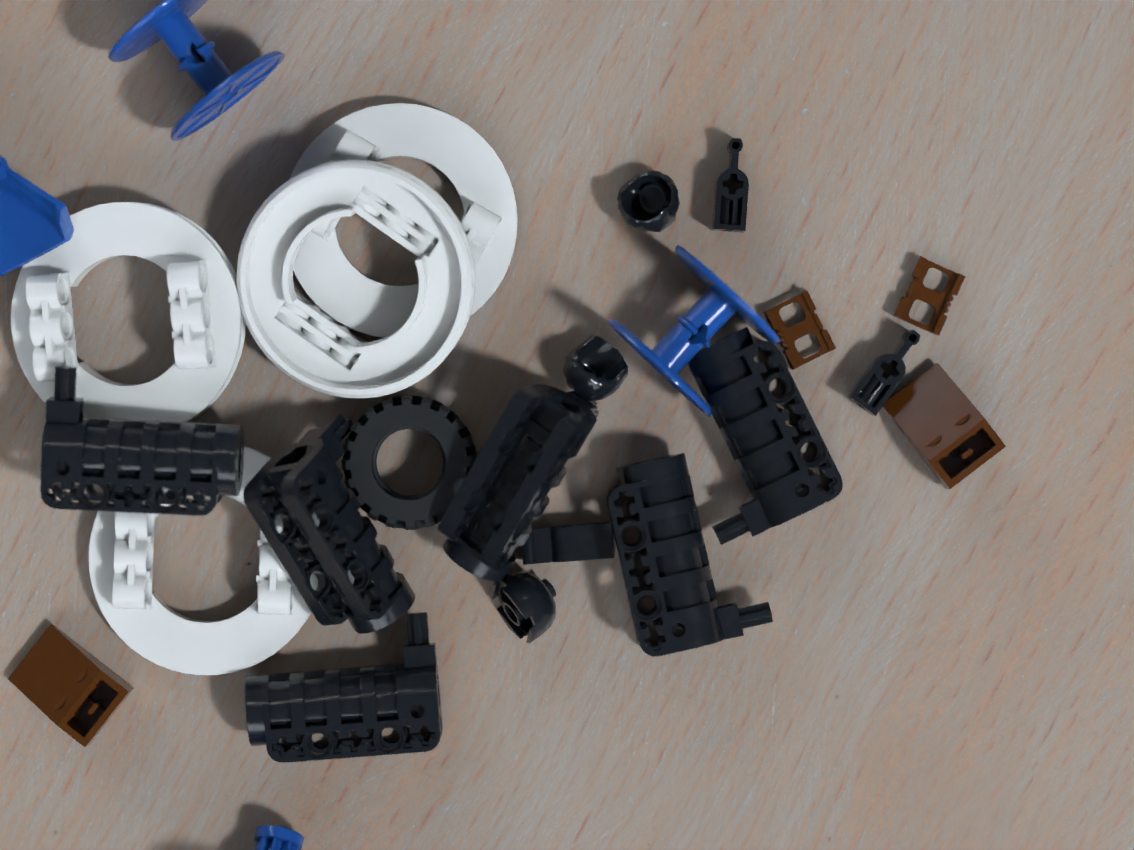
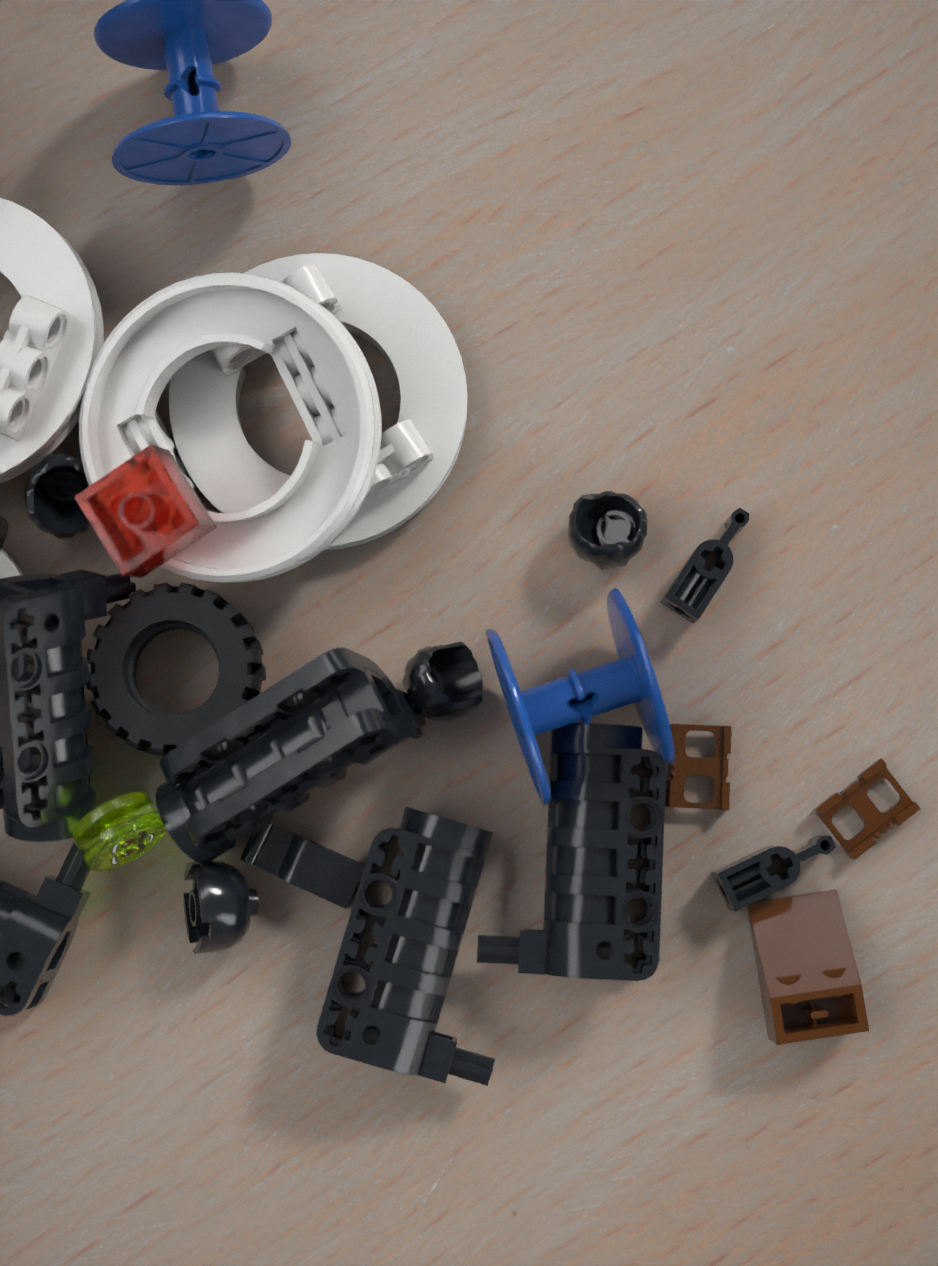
camera: 20 degrees right, 5 degrees down
(263, 387) = (52, 495): none -> black hair
(336, 368) = (145, 512): none -> clear red brick
(436, 590) = (118, 831): none -> clear neon green head

